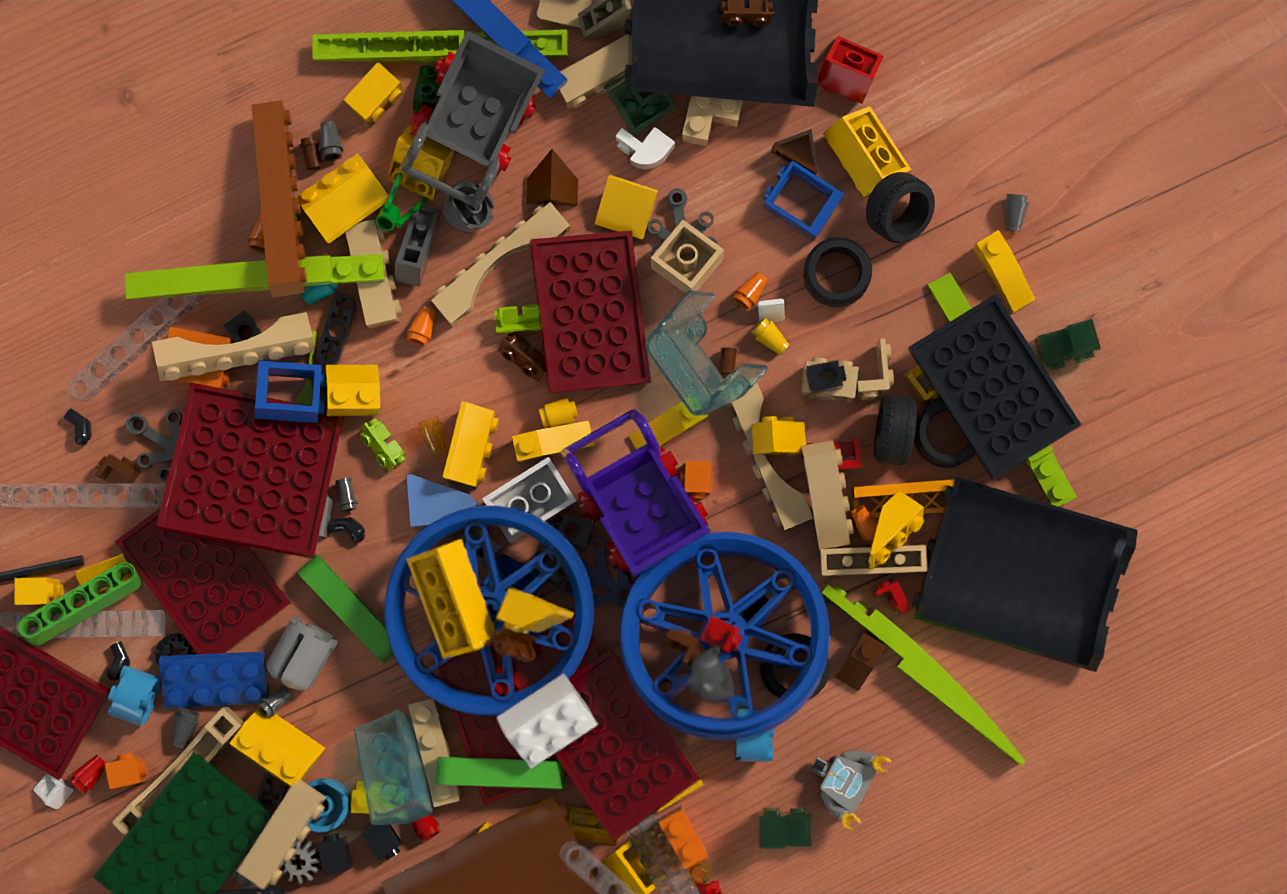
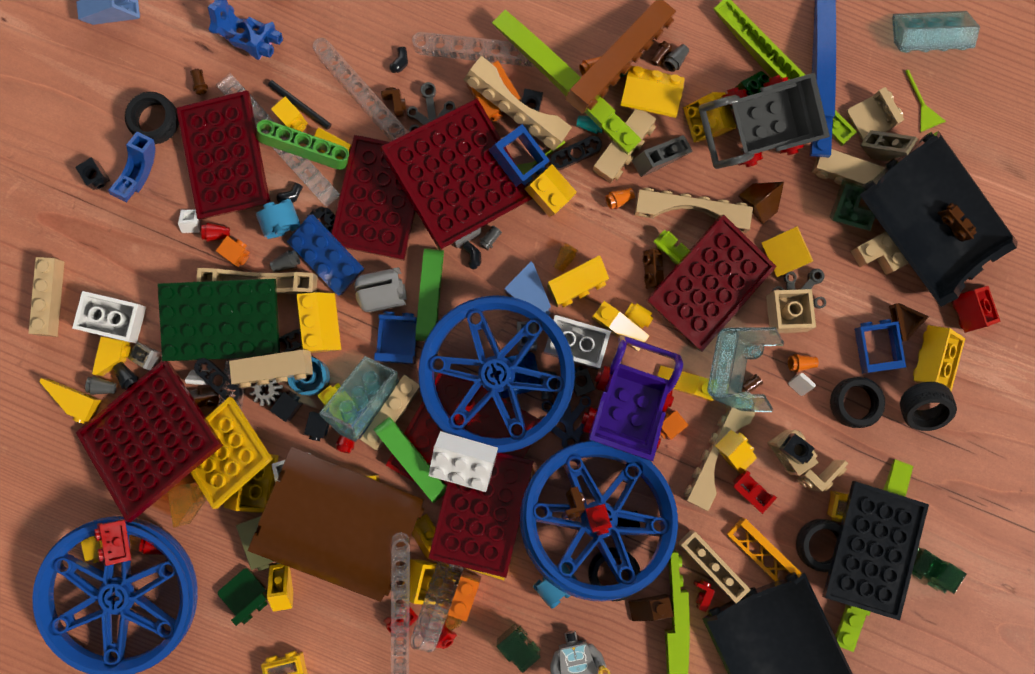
camera: 40 degrees right, 0 degrees up
(270, 705) = (341, 299): dark grey pin -> none
(364, 681) = (396, 338): none -> blue panel
(374, 94) = (724, 58): yellow brick -> none
(374, 436) = (536, 224): lime hinge -> none
(390, 215) = (666, 124): green plant -> none
(452, 599) = (484, 348): yellow slope -> none
(463, 216) = (702, 165): dark grey cylinder -> none
(513, 644) = (489, 405): reddish brown hinge -> none
(529, 613) = (515, 398): yellow slope -> none
(649, 153) = (829, 238): white brick -> none
(711, 677) = (570, 535): dark grey cylinder -> none
(770, 336) = (787, 396): yellow cone -> none
(826, 495) = (729, 507): tan brick -> none
(865, 524) = (730, 544): orange cone -> none
(895, 430) = (799, 514): black tyre -> none
(896, 522) = (750, 561): yellow slope -> none
(1004, 270) = (943, 495): yellow slope -> none
(1014, 211) = (982, 472): dark grey cone -> none

